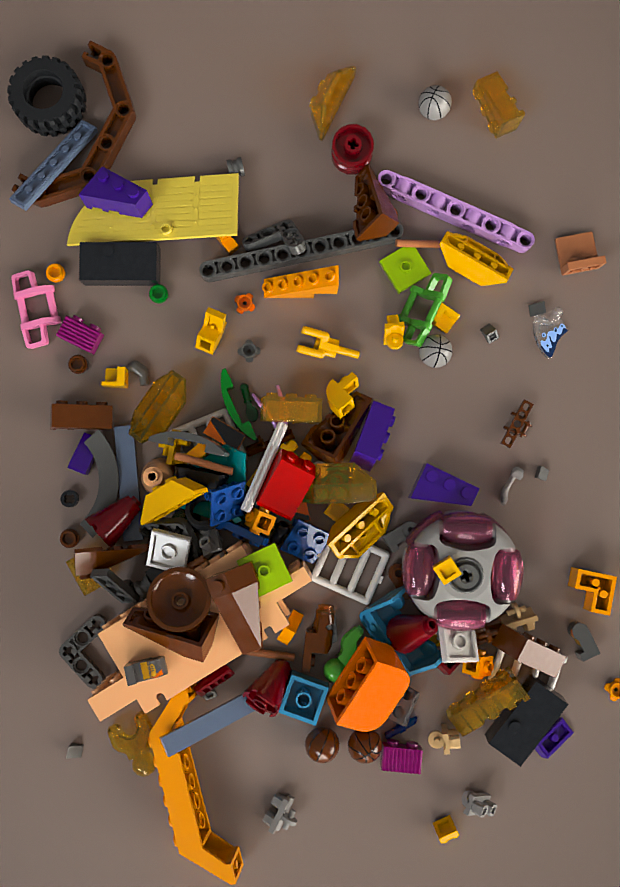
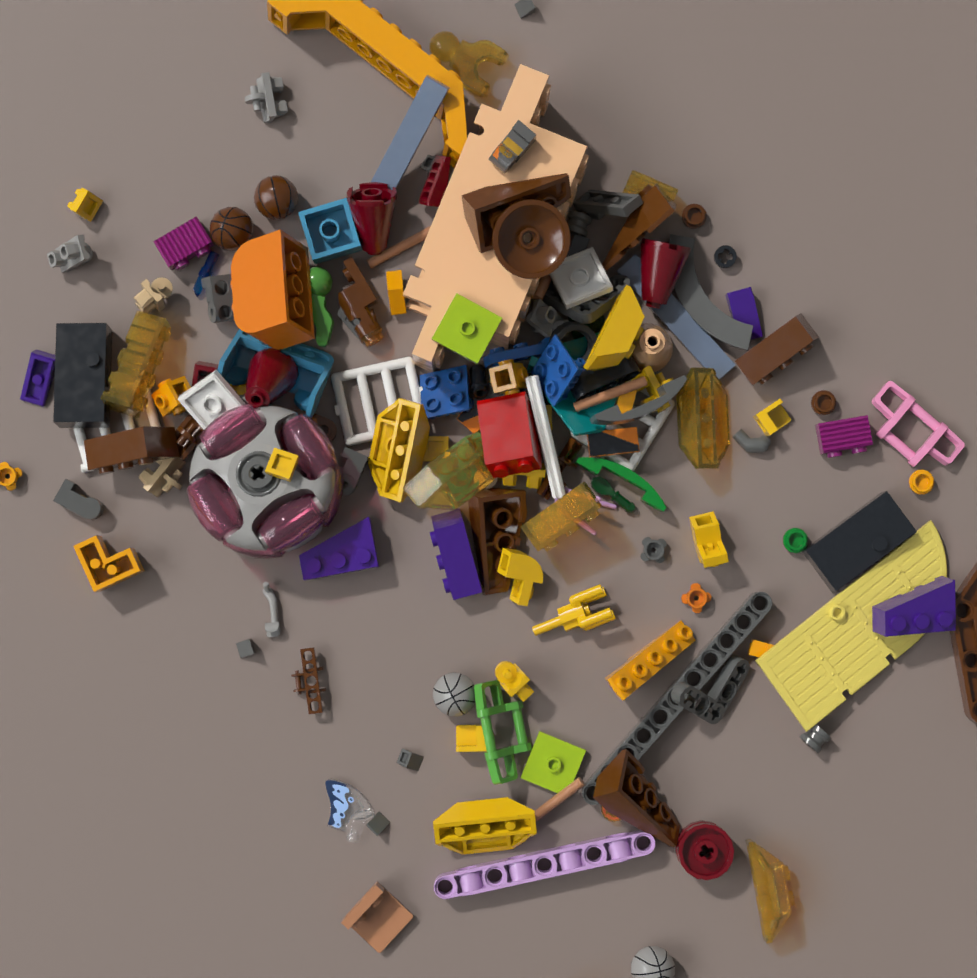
camera: 145 degrees right, 0 degrees up
(78, 647) = (600, 111): dark grey beam -> none
(239, 604) = (471, 279): reddish brown wedge -> none

